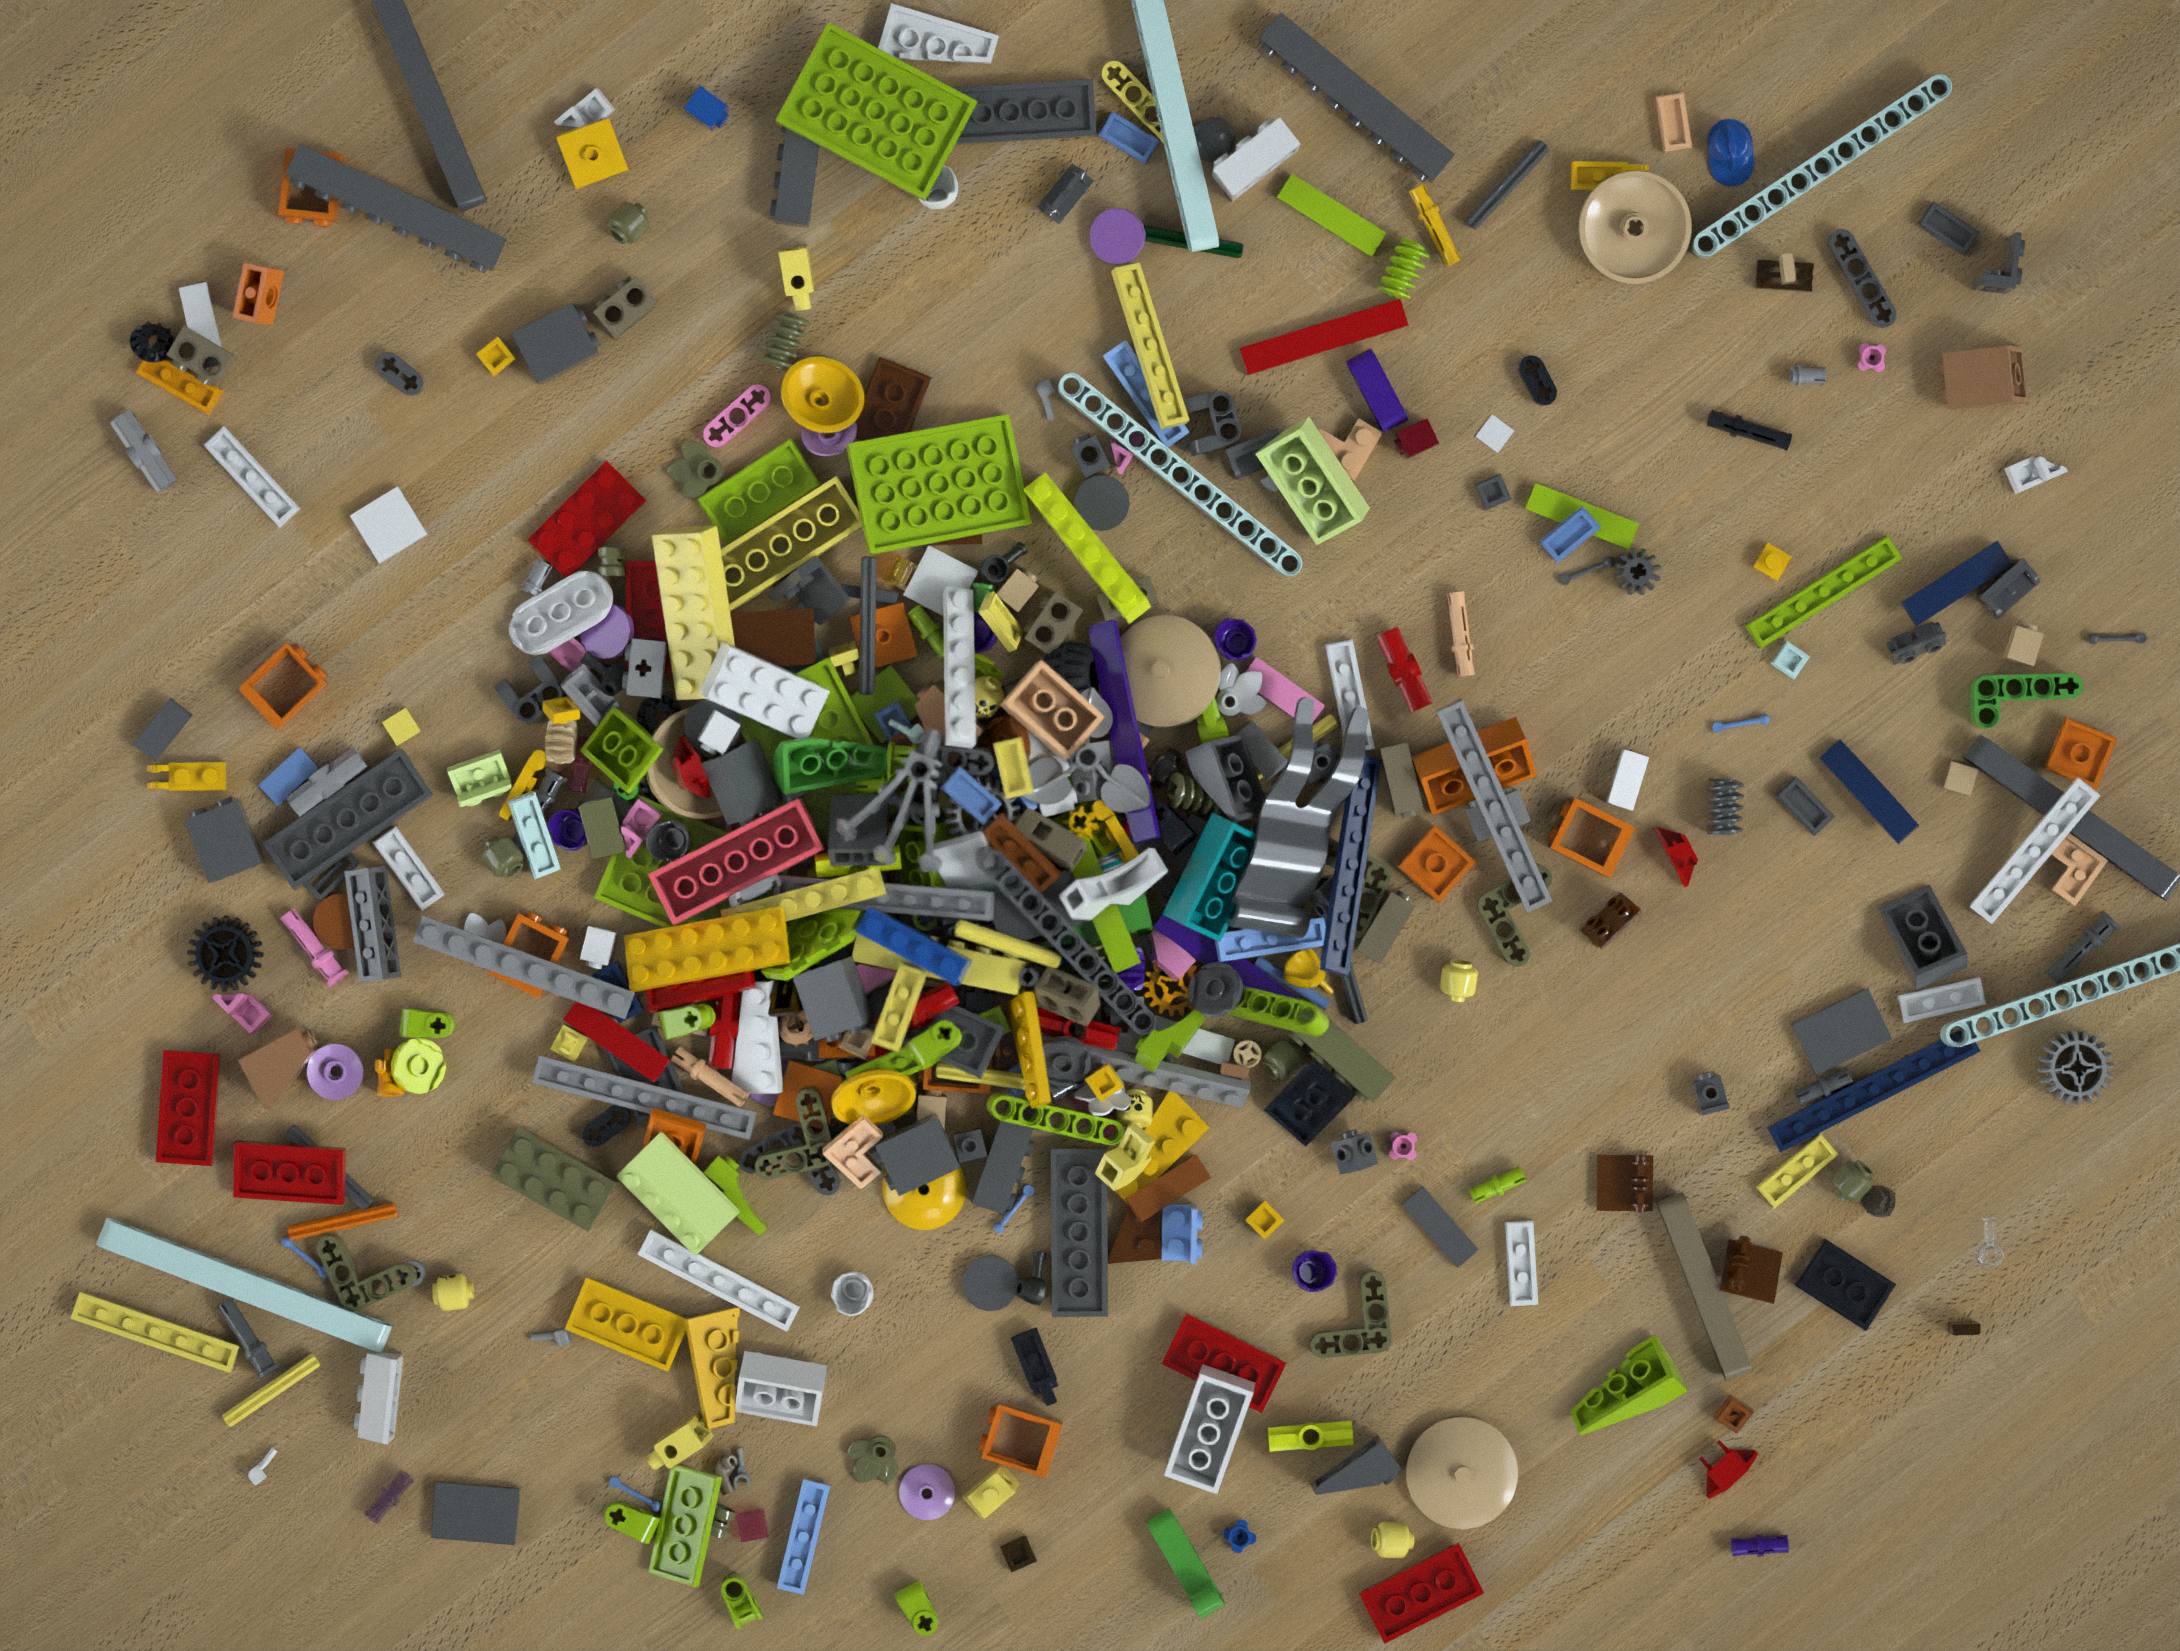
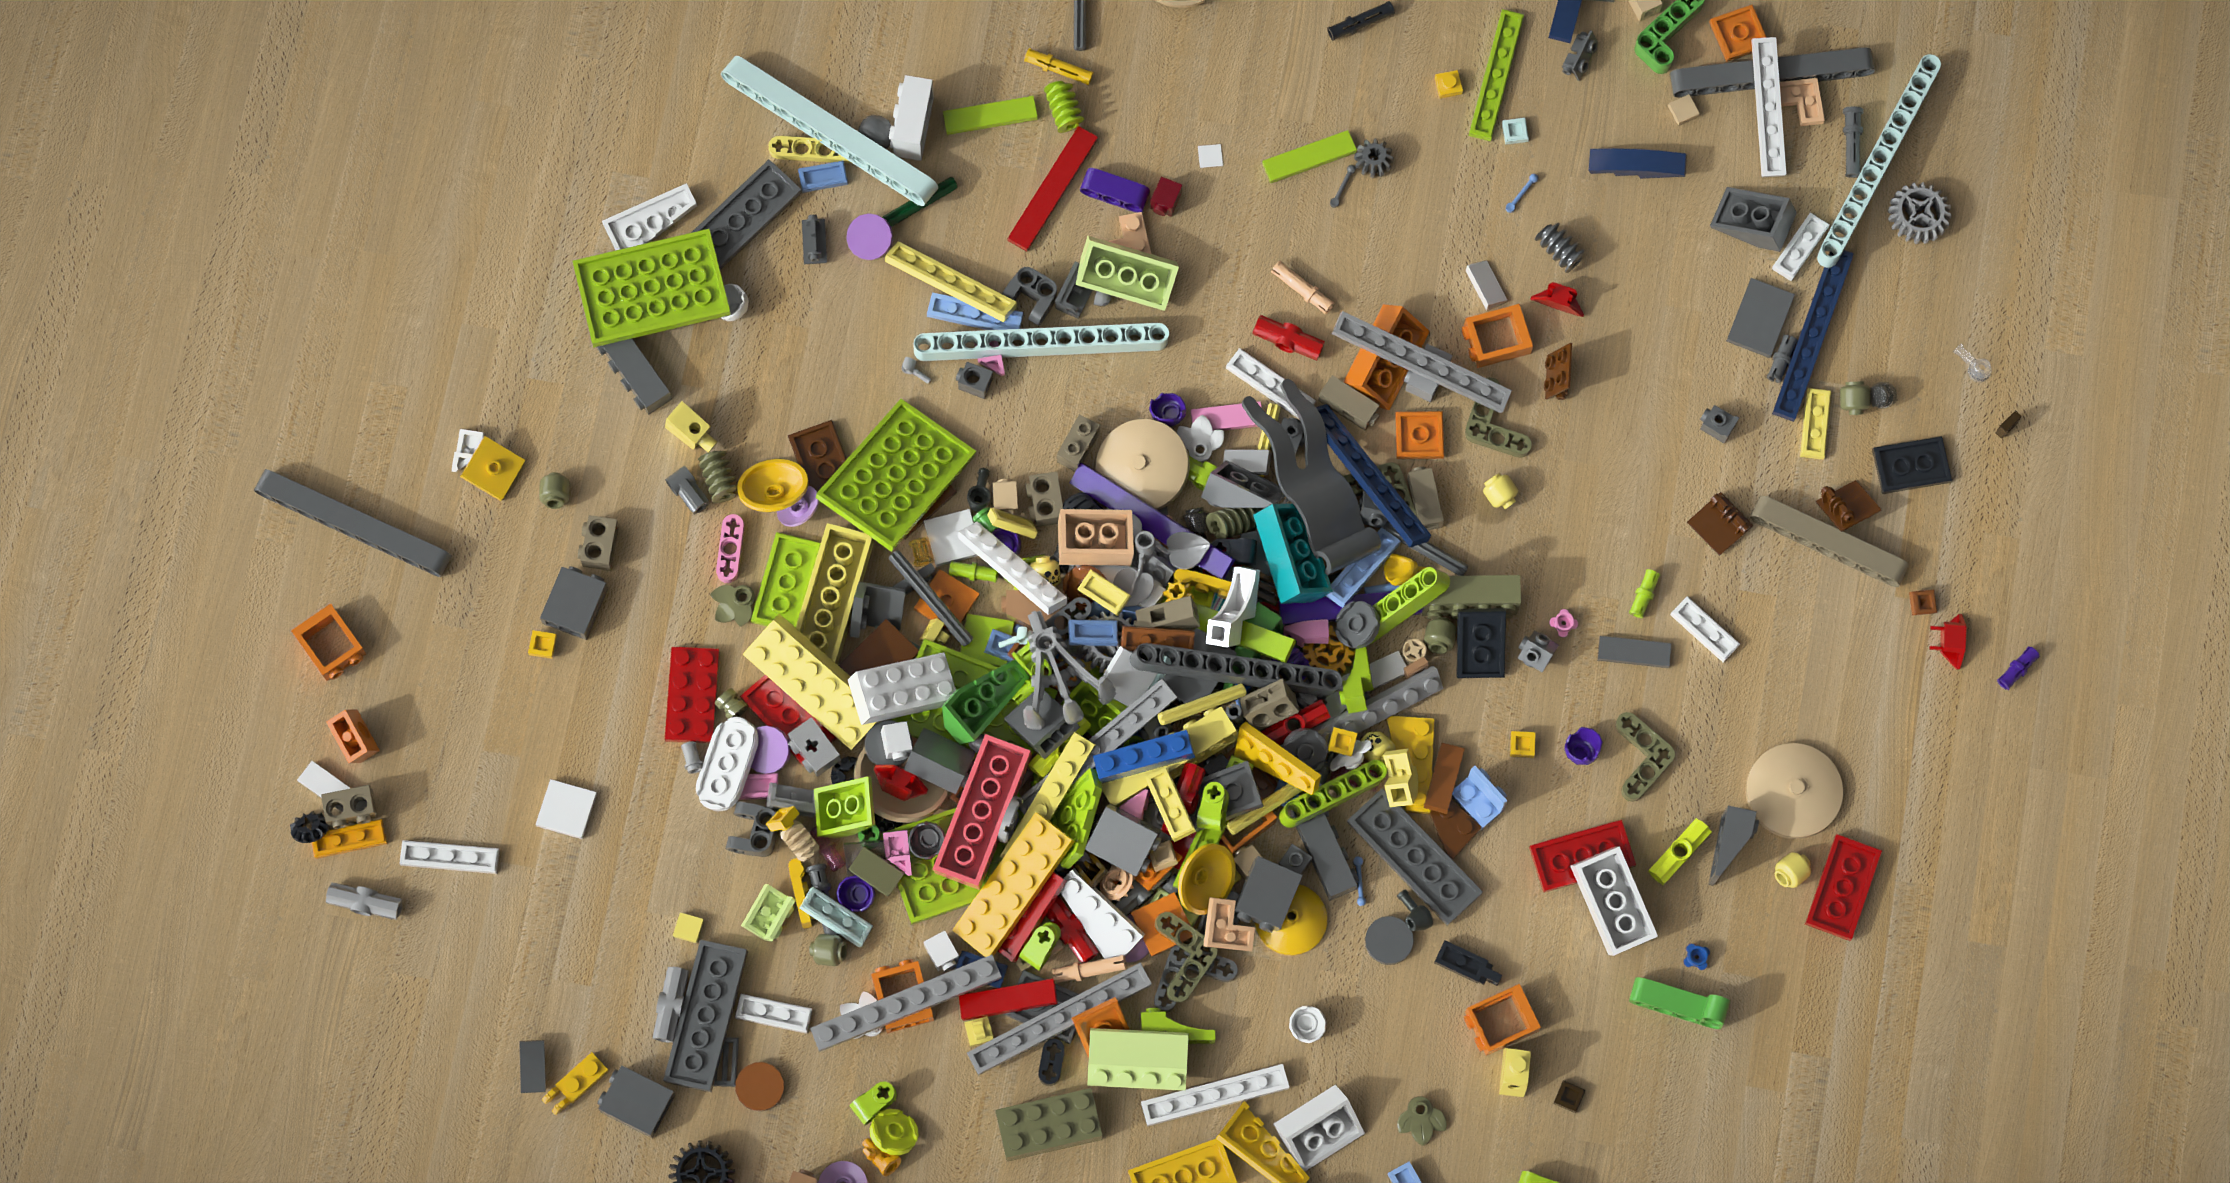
camera: 45 degrees left, 15 degrees down
(263, 705) = (580, 991): orange window -> none
(289, 776) = (642, 1024): medium blue tile -> none
(322, 958) = (766, 1120): bright pink pin -> none
(370, 924) = (781, 1068): dark grey fence -> none
(395, 208) = (395, 605): dark grey brick -> none
(396, 379) = (489, 703): dark grey beam -> none
(611, 674) = (796, 774): pearl dark grey bar -> none
(707, 109) = (542, 380): blue brick -> none
(747, 321) = (685, 486): none -> dark grey piece
(929, 1477) = (1471, 1123): lavender dish -> none
(1087, 548) = (1025, 429): neon yellow brick -> none
(1102, 502) = (1008, 402): dark grey tile -> none
(1355, 97) = (940, 34): dark grey brick -> none
(1492, 492) = (1241, 189): dark grey tile -> none
(1531, 384) = (1207, 97): black beam -> none
(1570, 533) = (1312, 171): medium blue tile -> none
(1637, 1386) = (1849, 635): lime wedge -> none
(1804, 806) = (1607, 206): dark grey tile -> none

